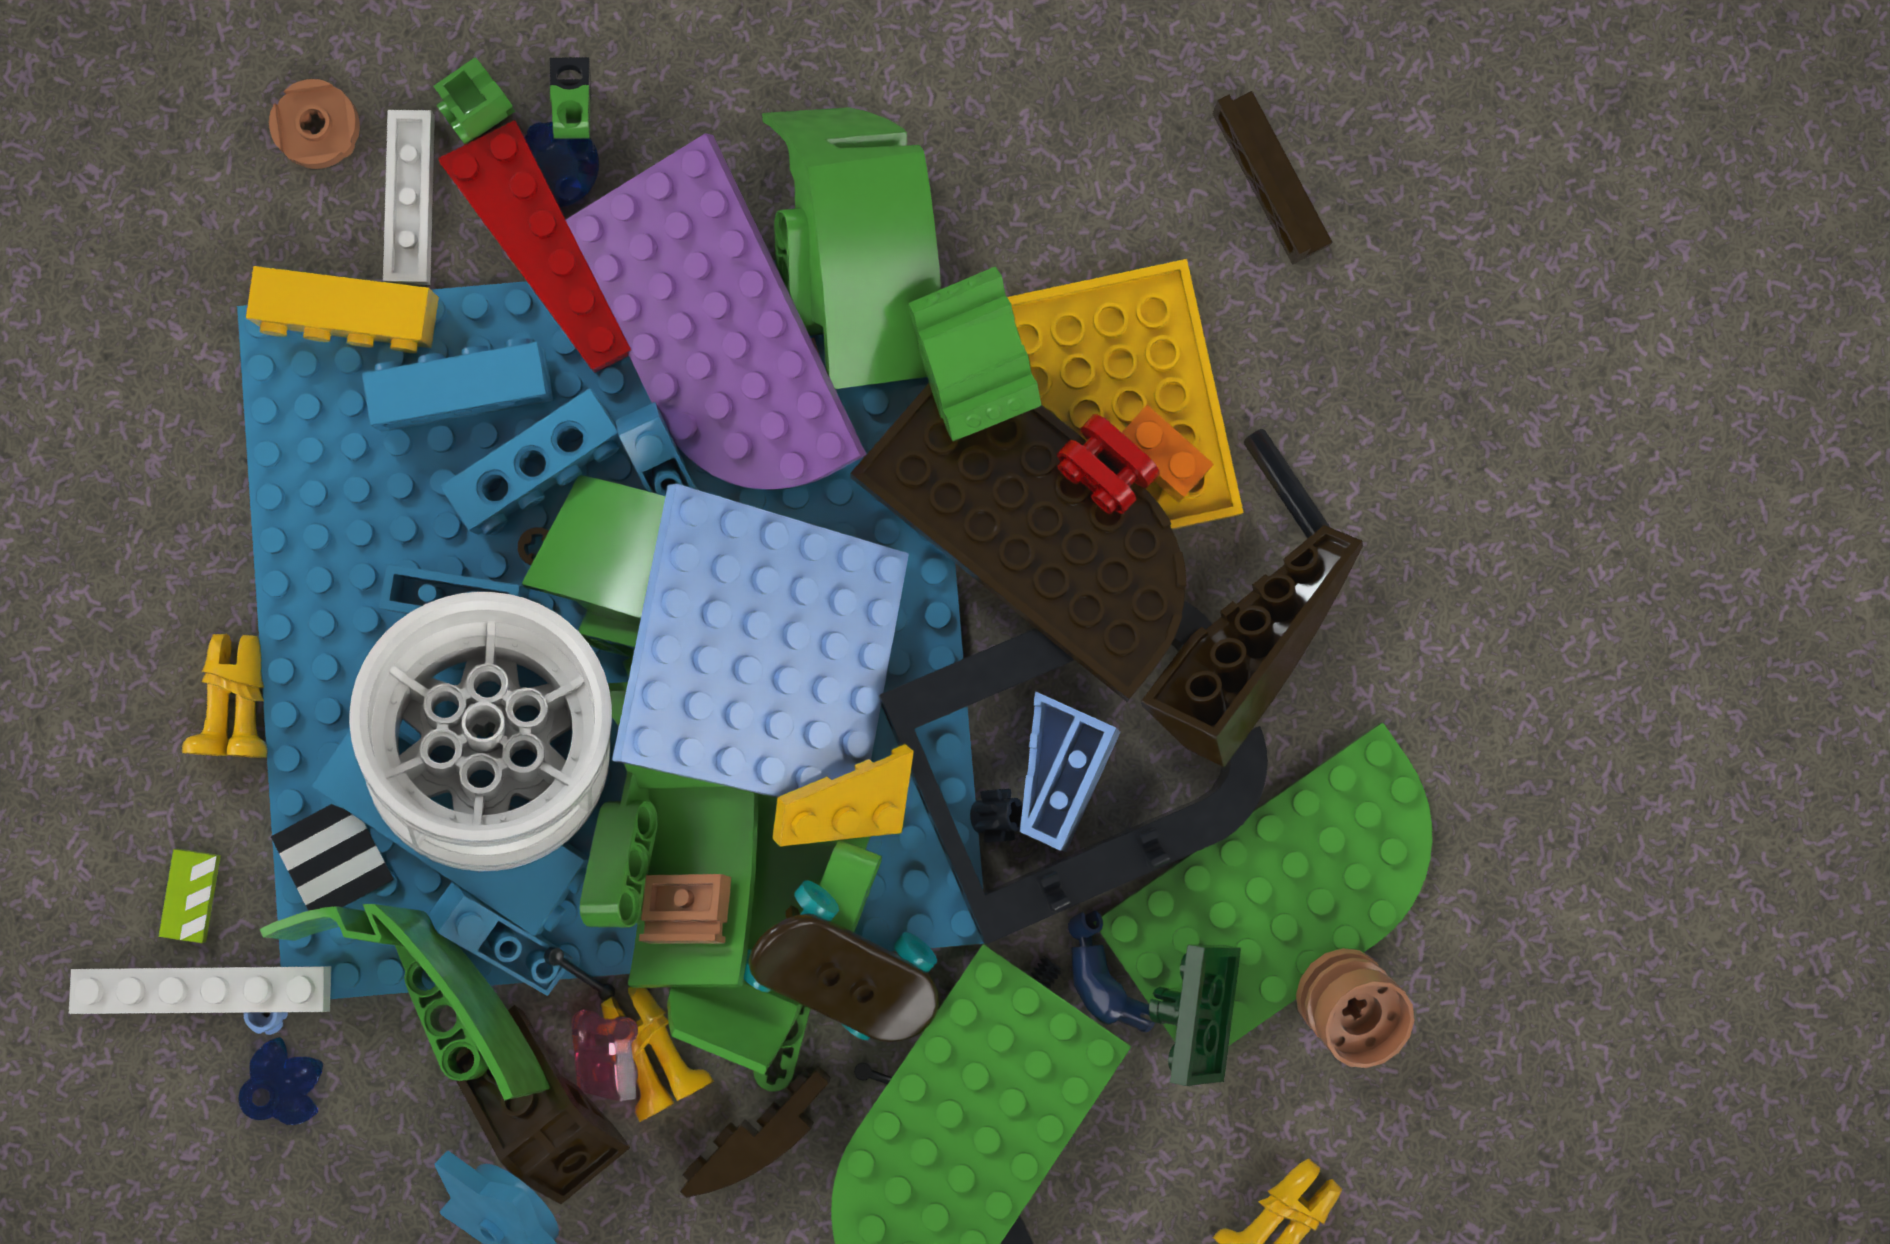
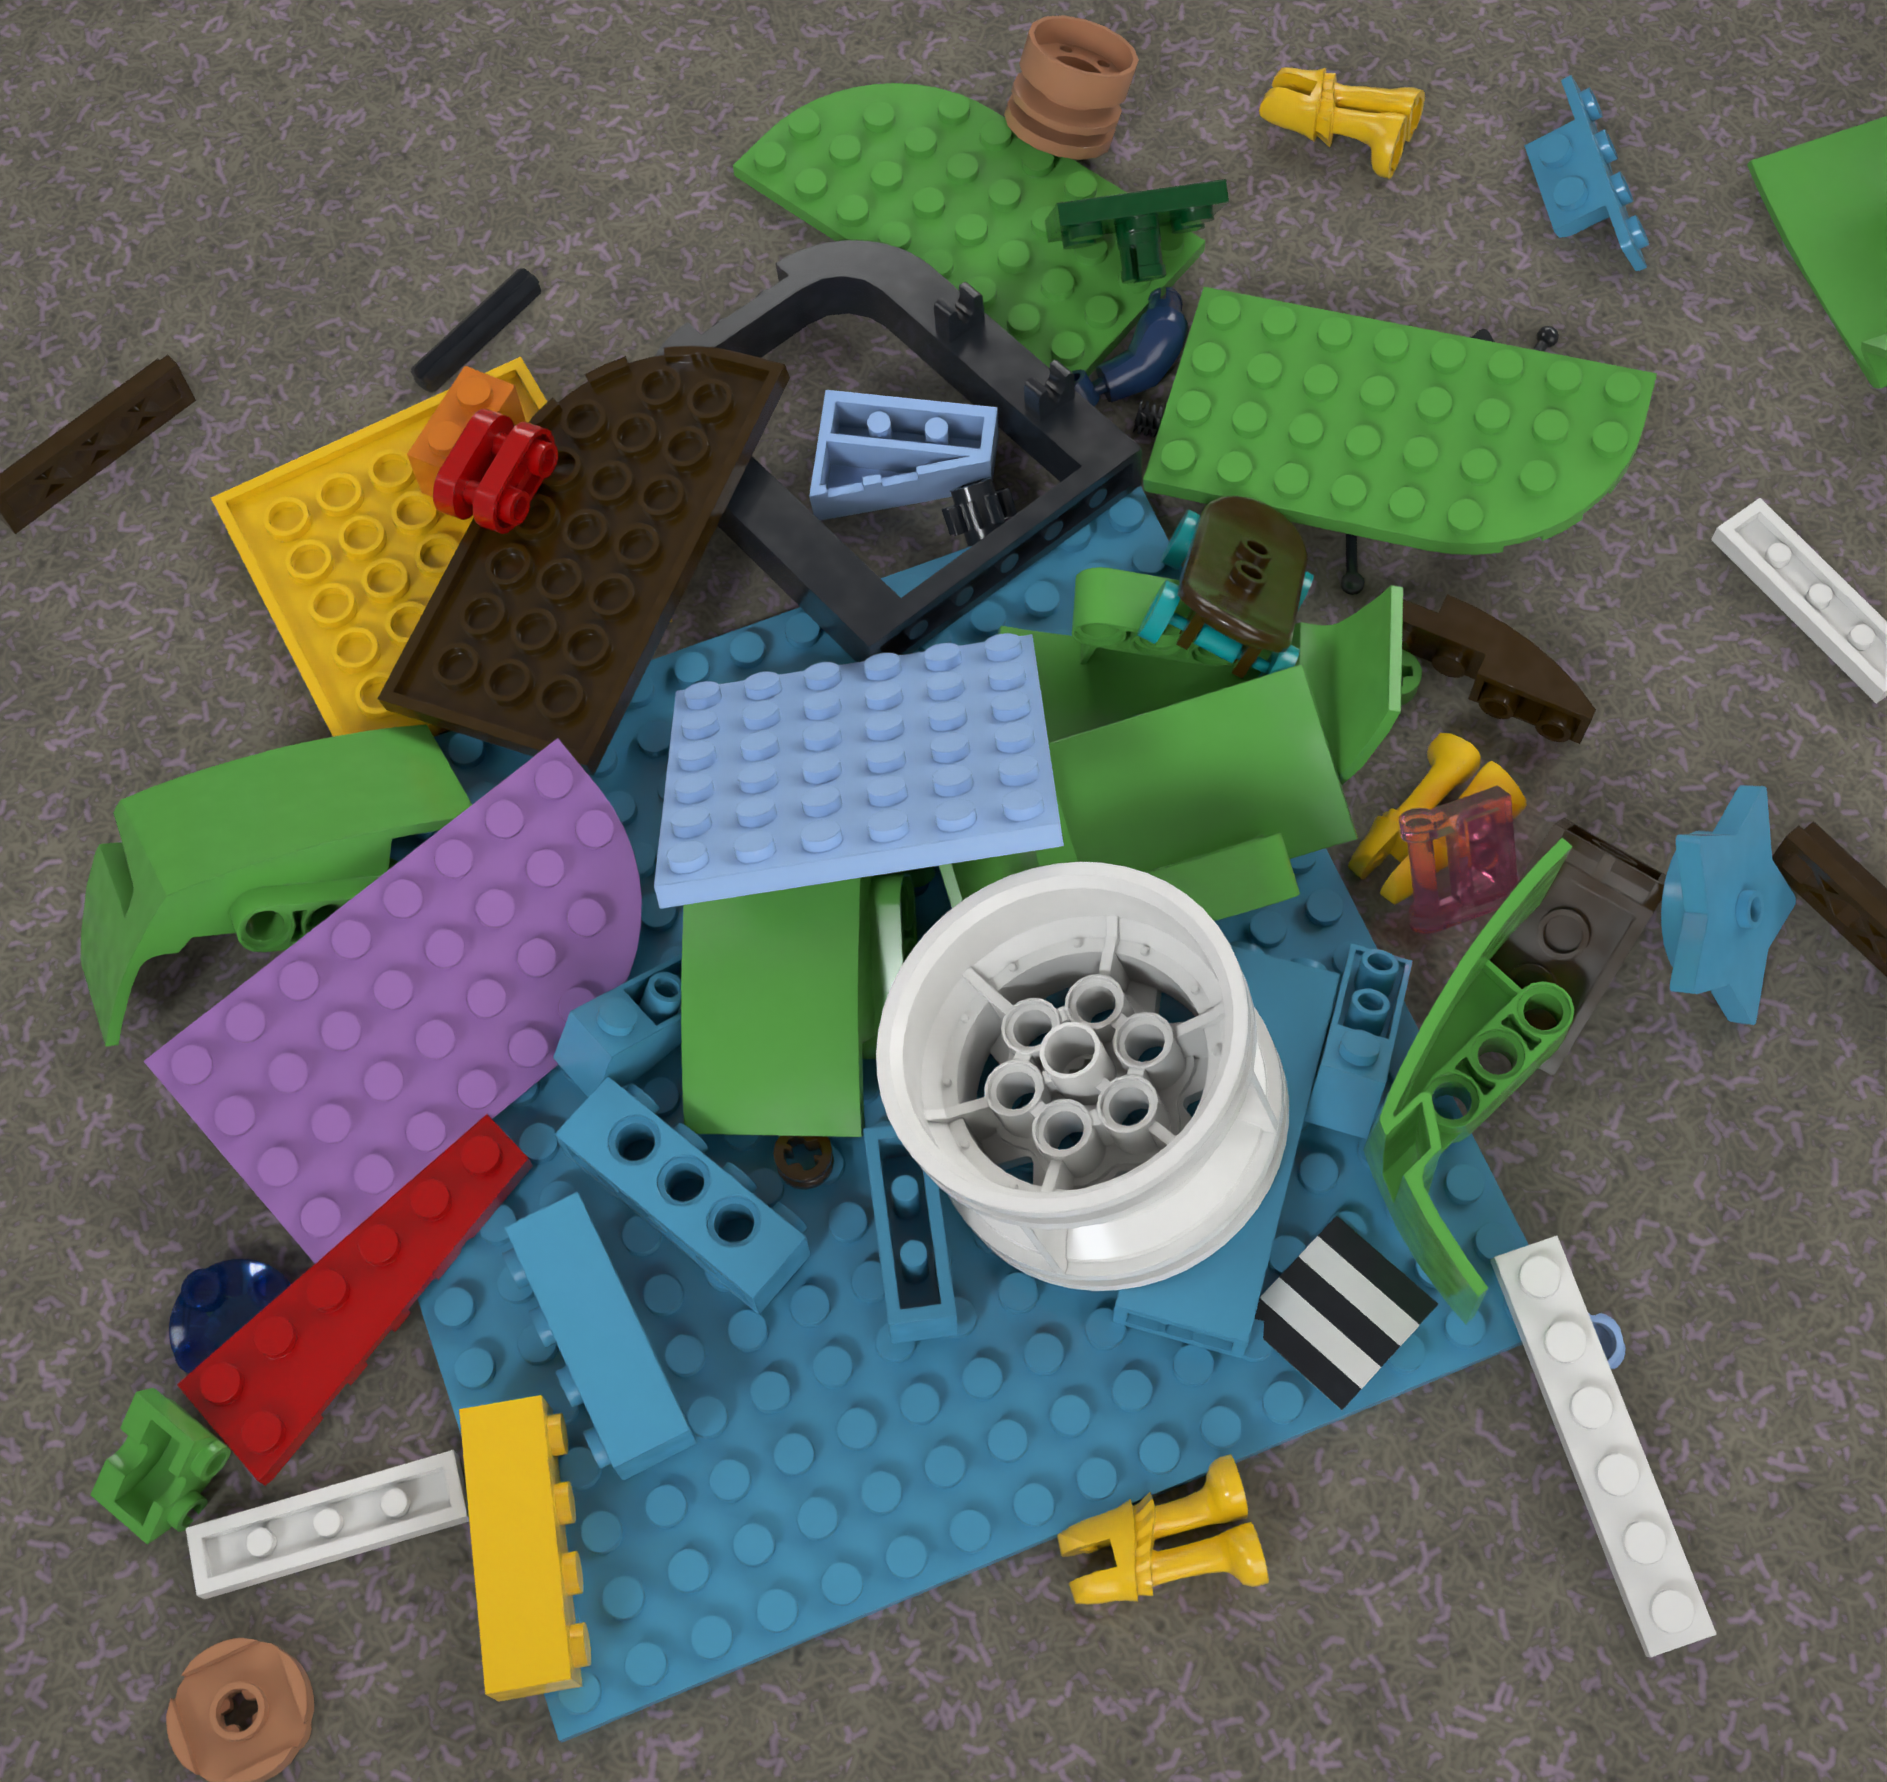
camera: 110 degrees left, 20 degrees down
(189, 895) = (1472, 1515): lime tile -> none
(286, 1082) = (1673, 1286): clear blue plate -> none
(555, 957) = (1358, 952): black hinge -> none
(570, 98) = (129, 1315): bright green leg -> none
(685, 908) = (1230, 778): nougat plate -> none
(848, 807) = (1027, 629): yellow wing -> none
(974, 354) = (388, 646): bright green slope -> none
(1240, 662) = (685, 281): dark brown wedge -> none

